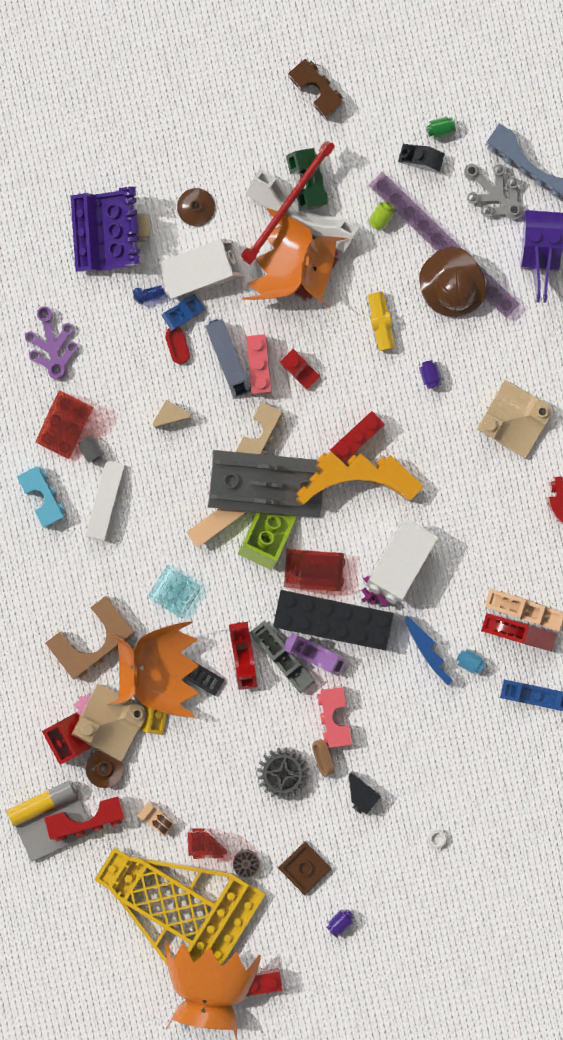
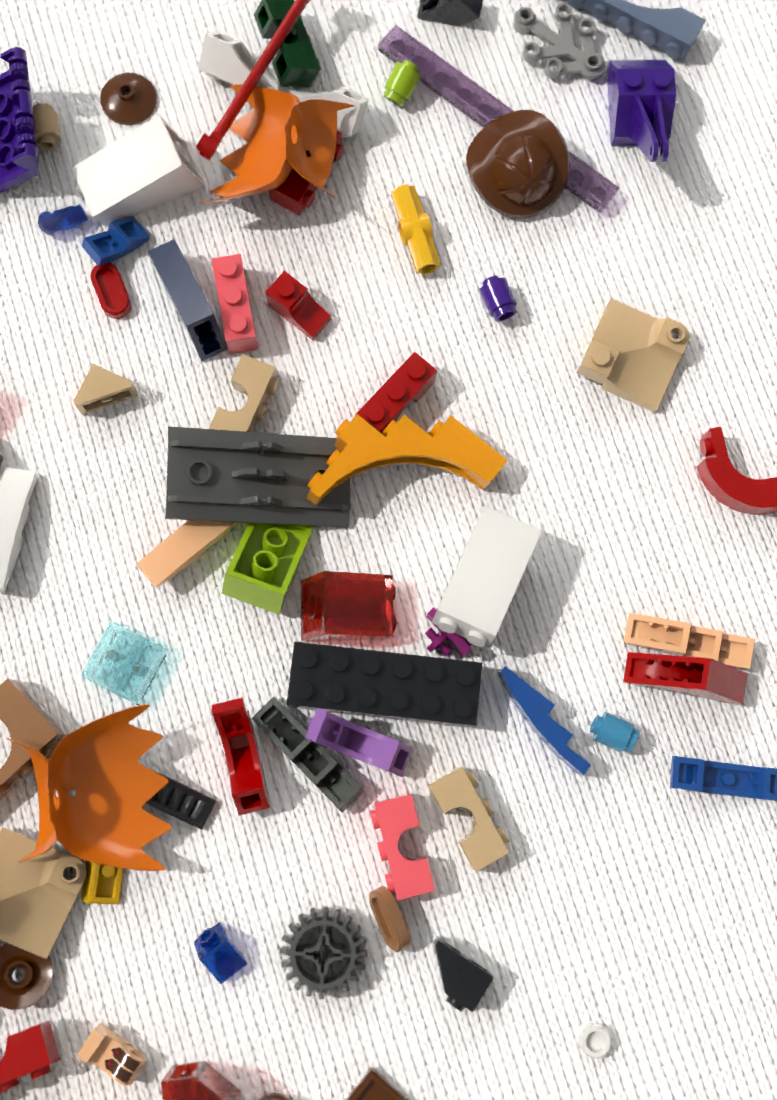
camera: 10 degrees left, 10 degrees down
(221, 768) = (219, 953): none -> clear blue bracket
(384, 719) = (485, 841): none -> tan arch

